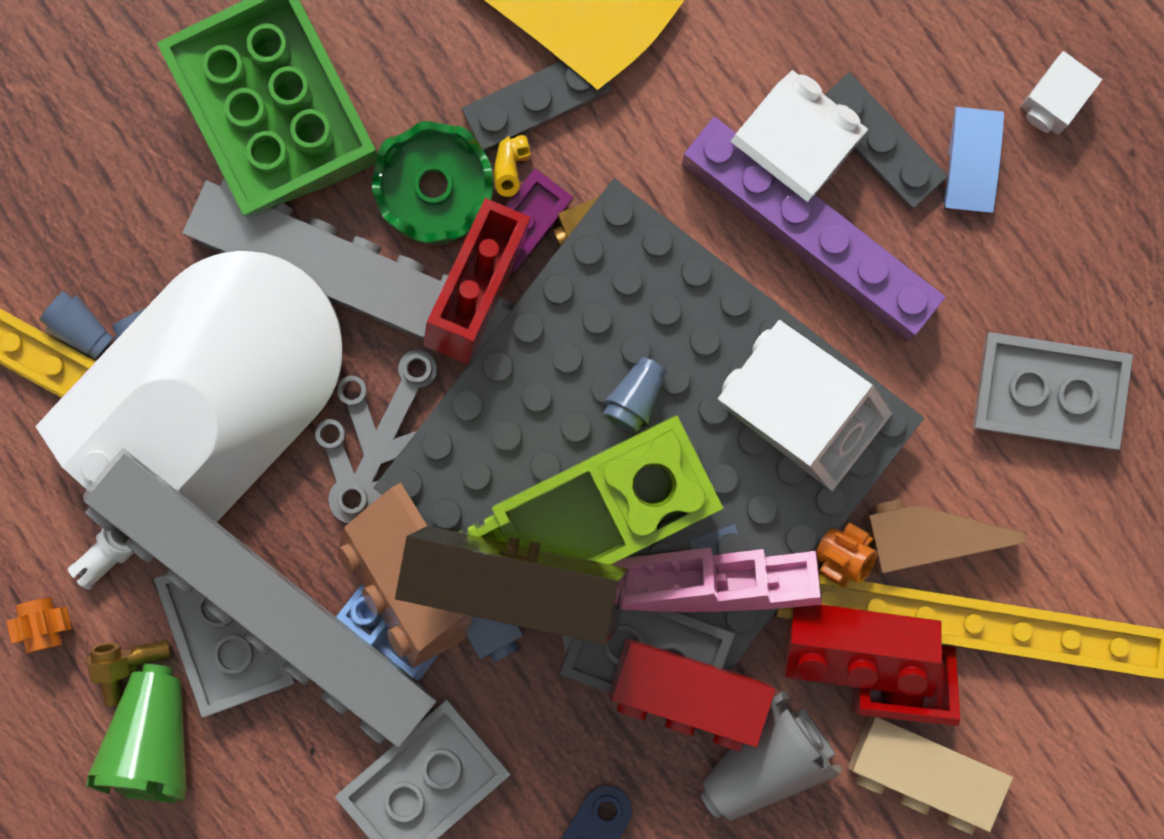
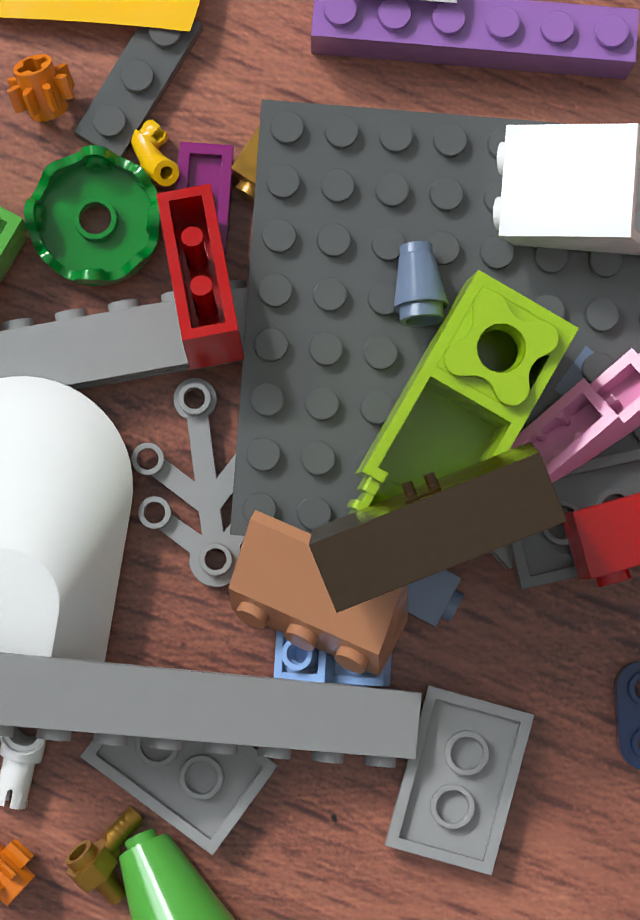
camera: 35 degrees left, 0 degrees up
(458, 59) = (40, 87): none -> orange gear

